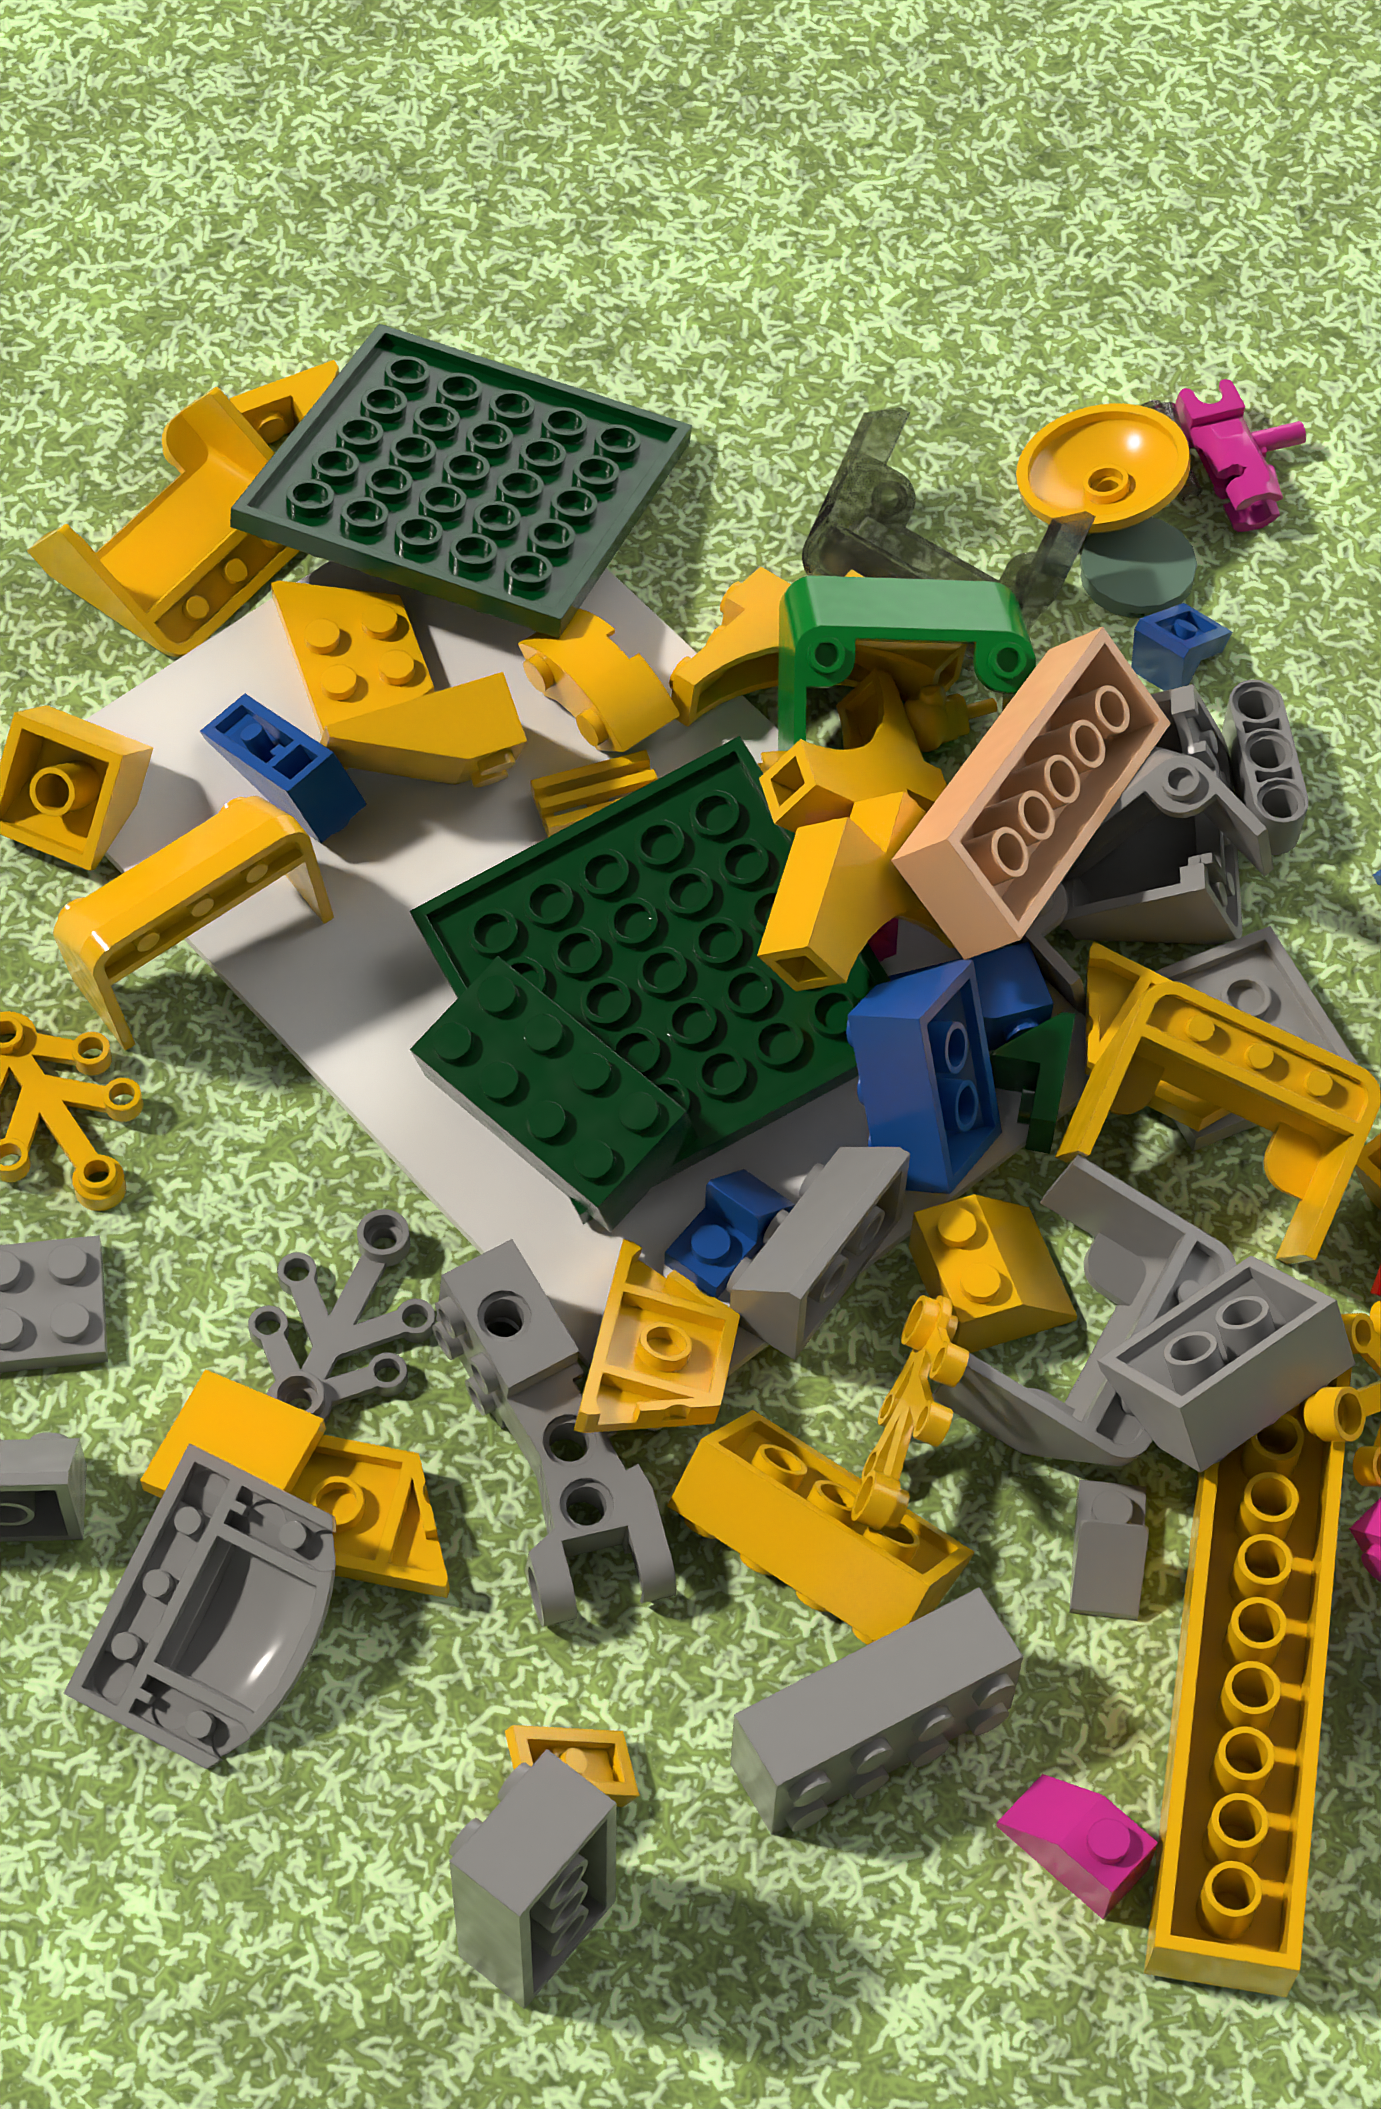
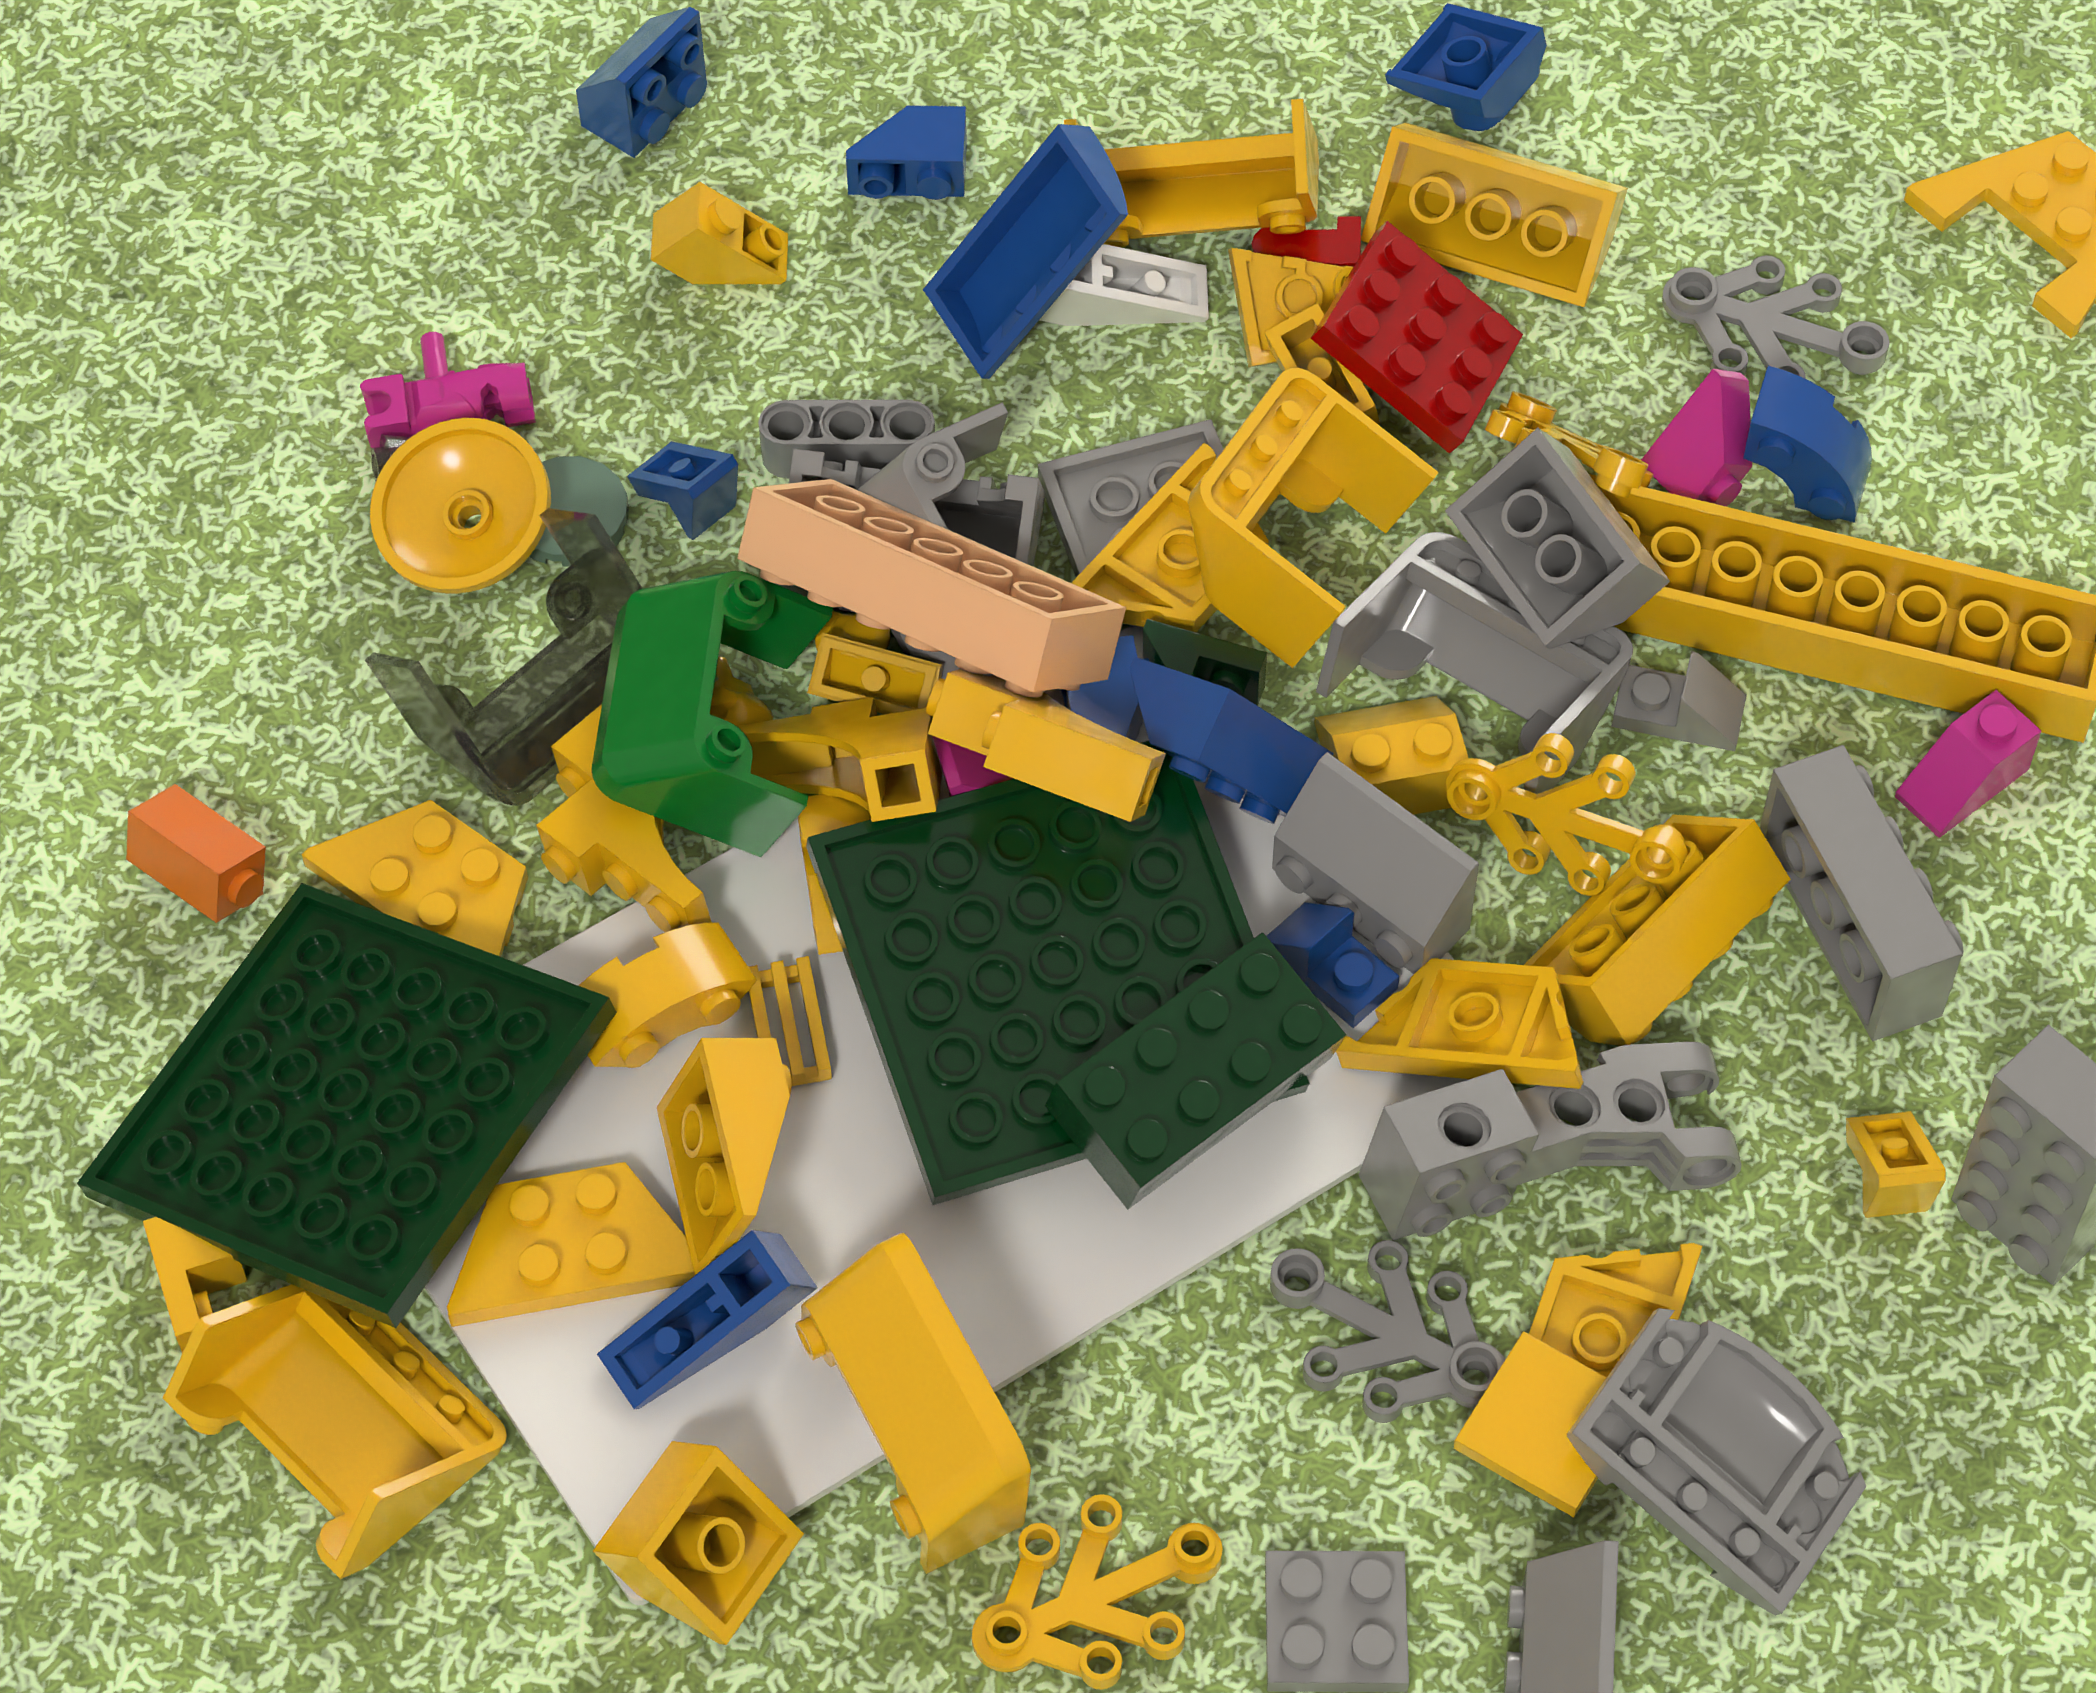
camera: 80 degrees left, 0 degrees up
(704, 343) = (195, 853): none -> orange brick
(713, 525) = (427, 873): none -> yellow wing

